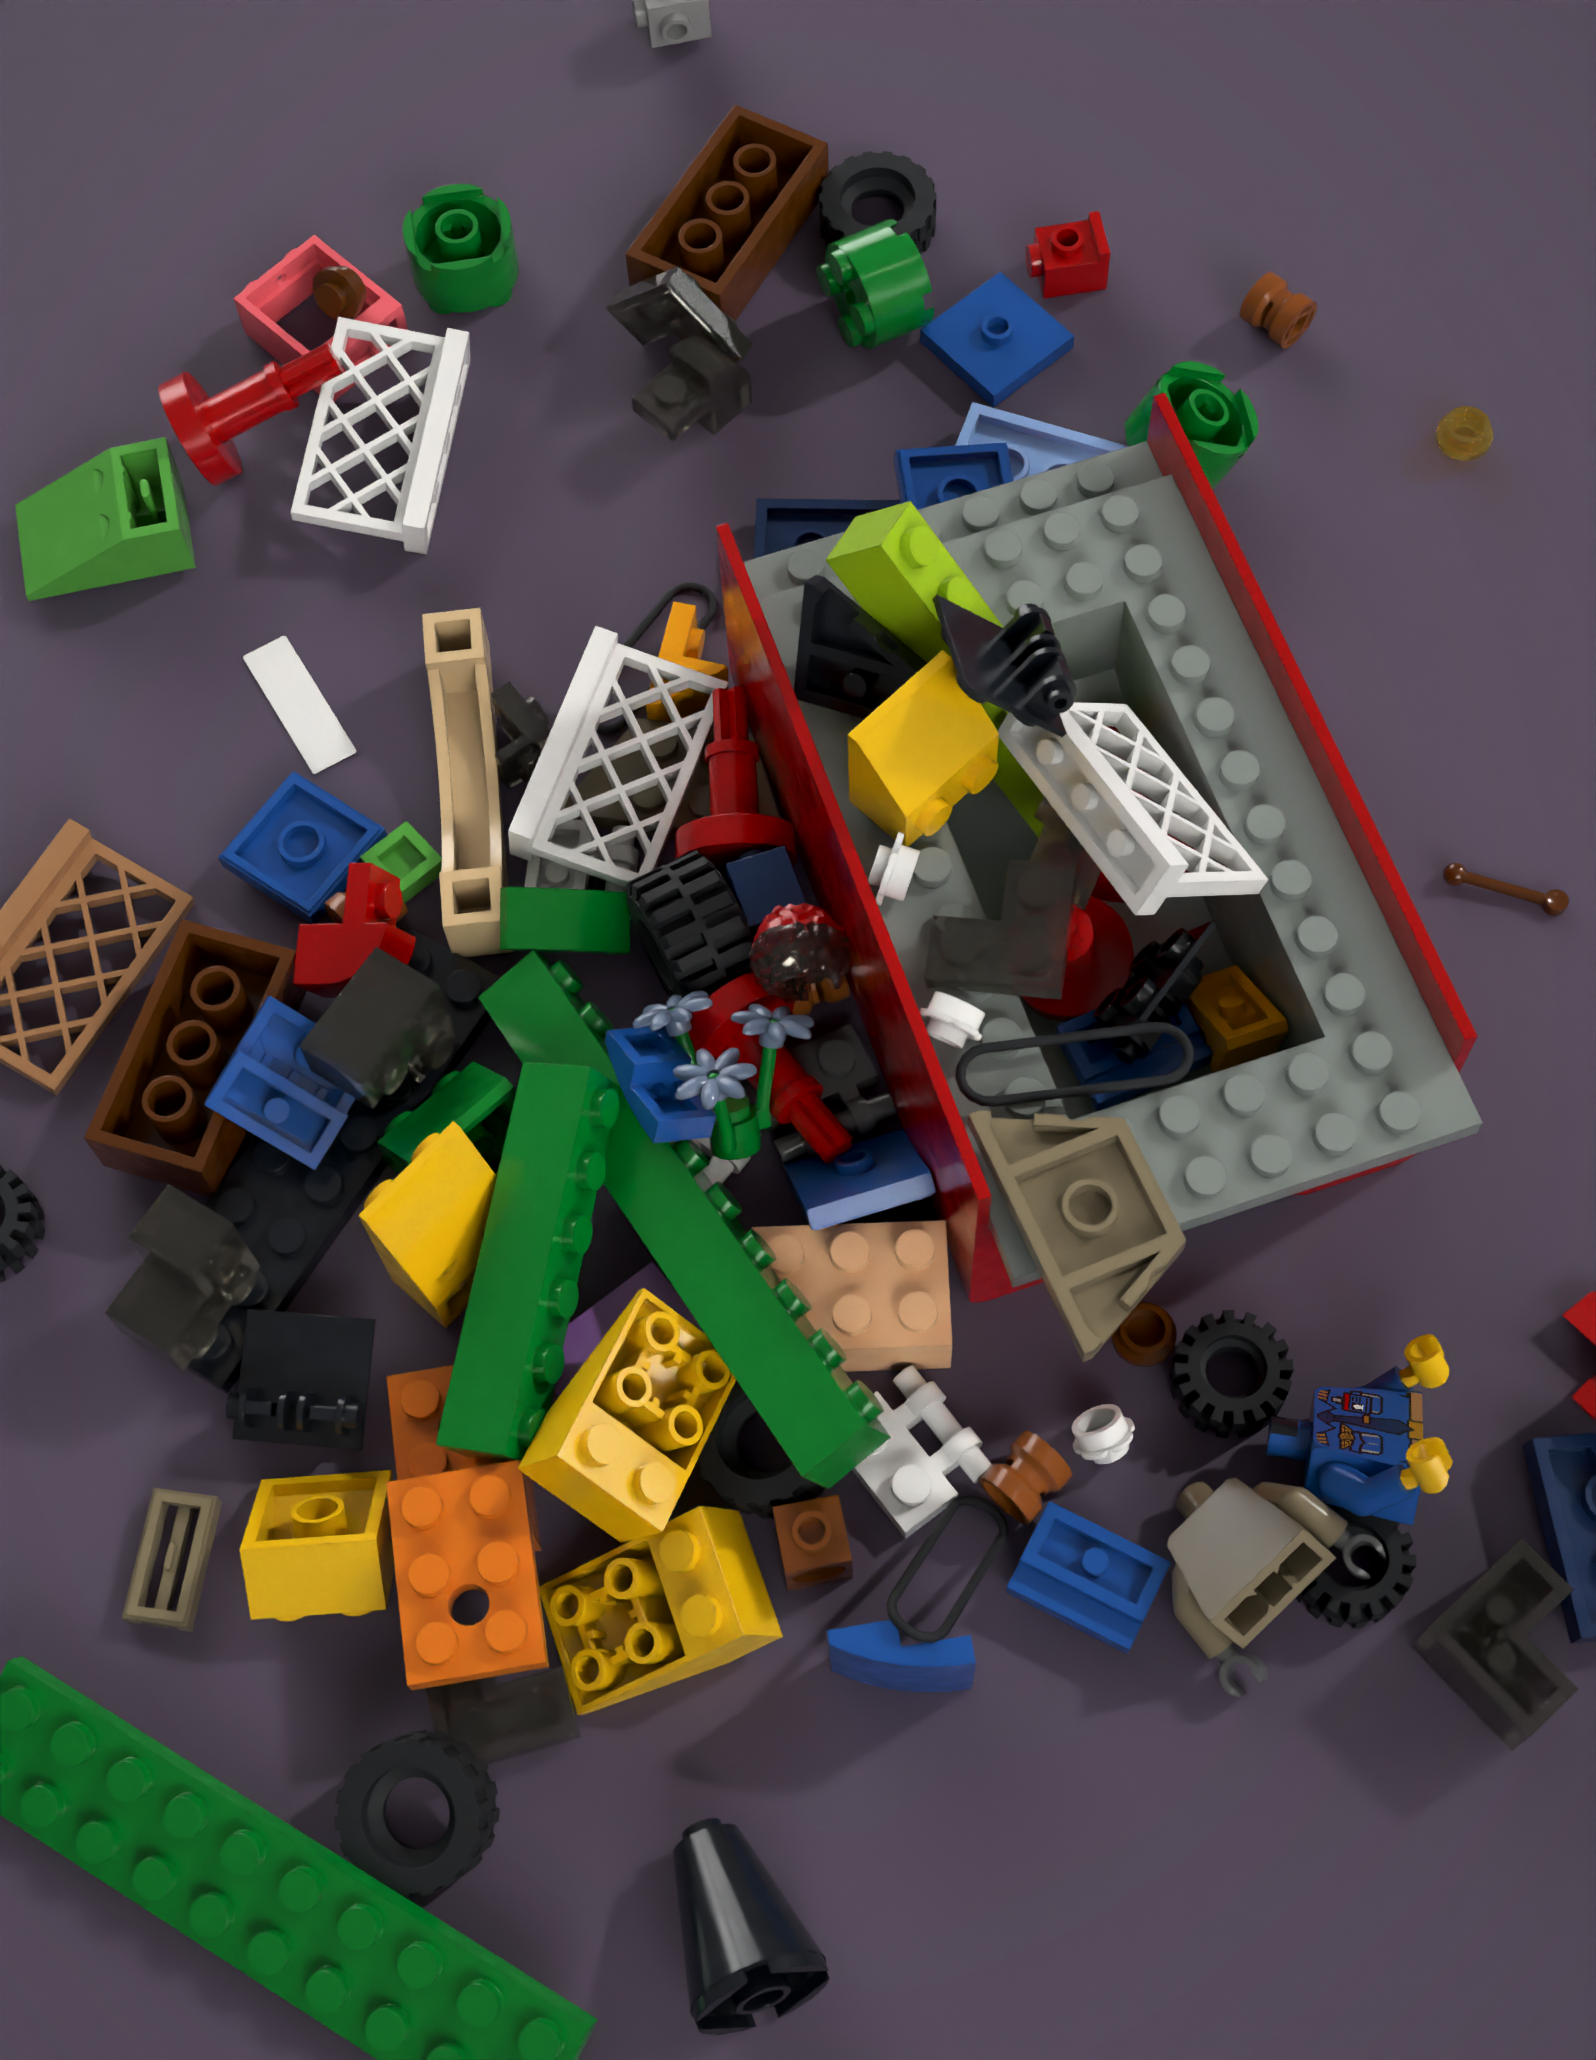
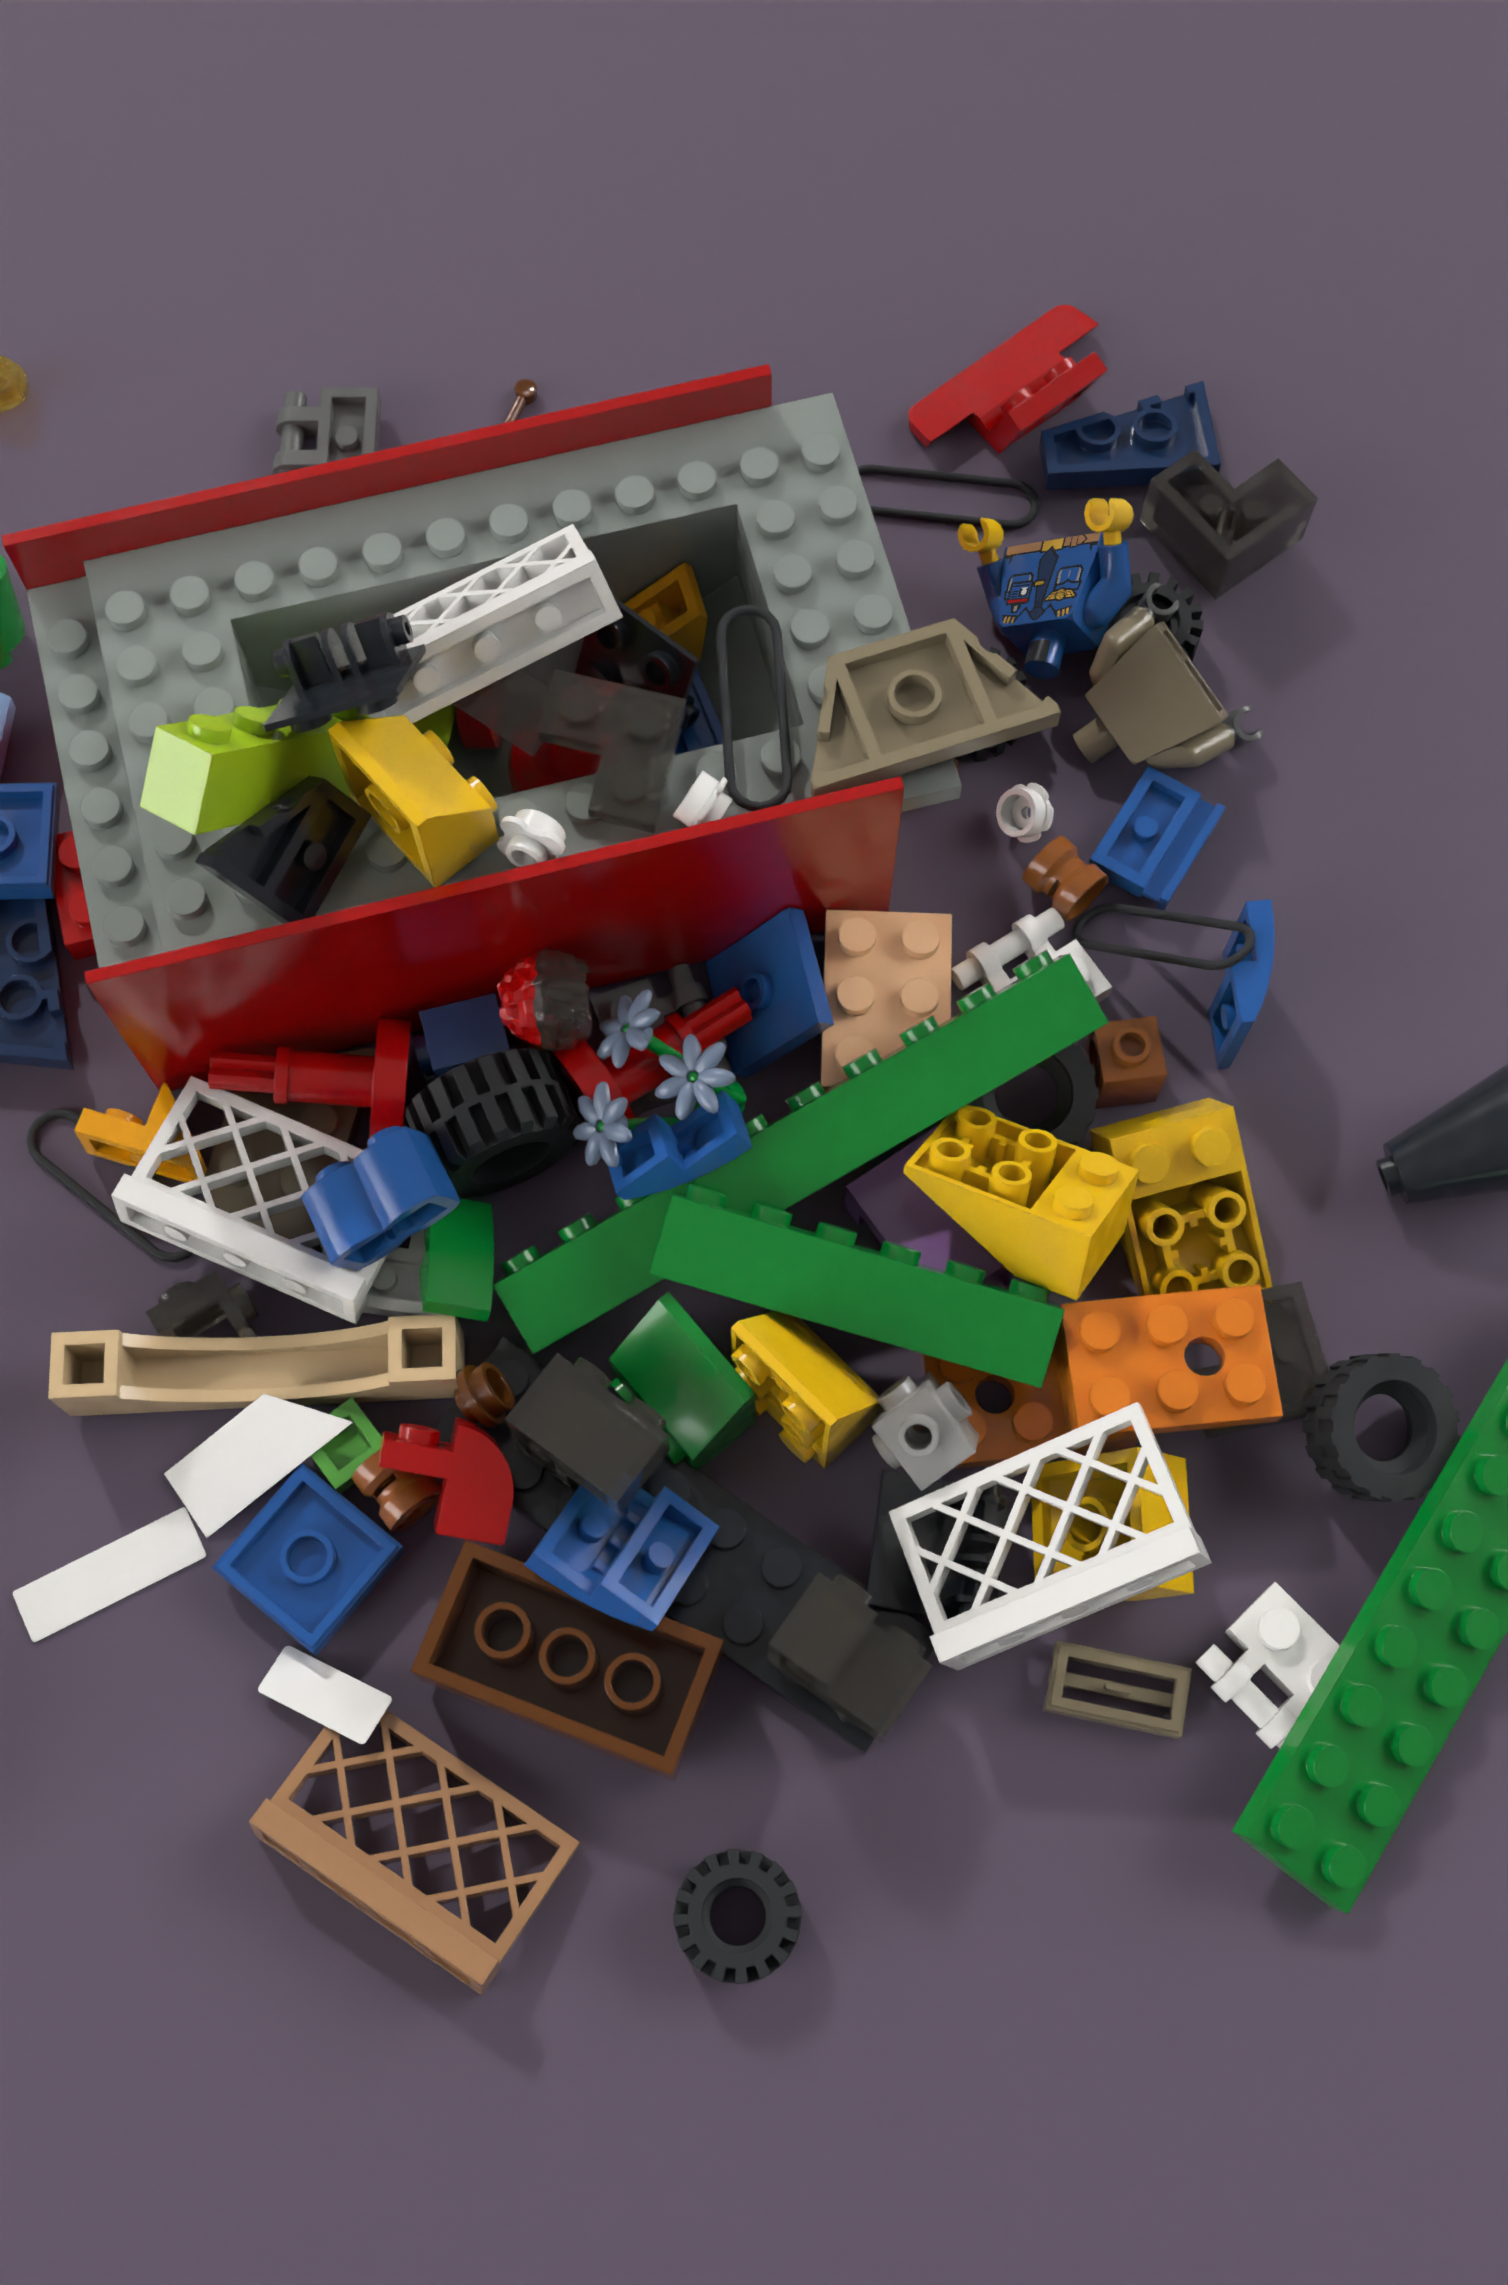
camera: 90 degrees left, 5 degrees up
(185, 876) = (325, 1694): none -> white sticker
(210, 1722) = (1286, 1647): none -> white plate
(237, 1486) = (1072, 1592): none -> white fence
(391, 789) = (249, 1458): none -> white sticker
(403, 1345) = (920, 1450): none -> light grey brick
(436, 954) = (483, 1394): none -> reddish brown plate
(601, 835) = (380, 1197): none -> blue brick
(1449, 737) = (344, 426): none -> dark grey plate
(1527, 1337) = (954, 477): none -> black piece

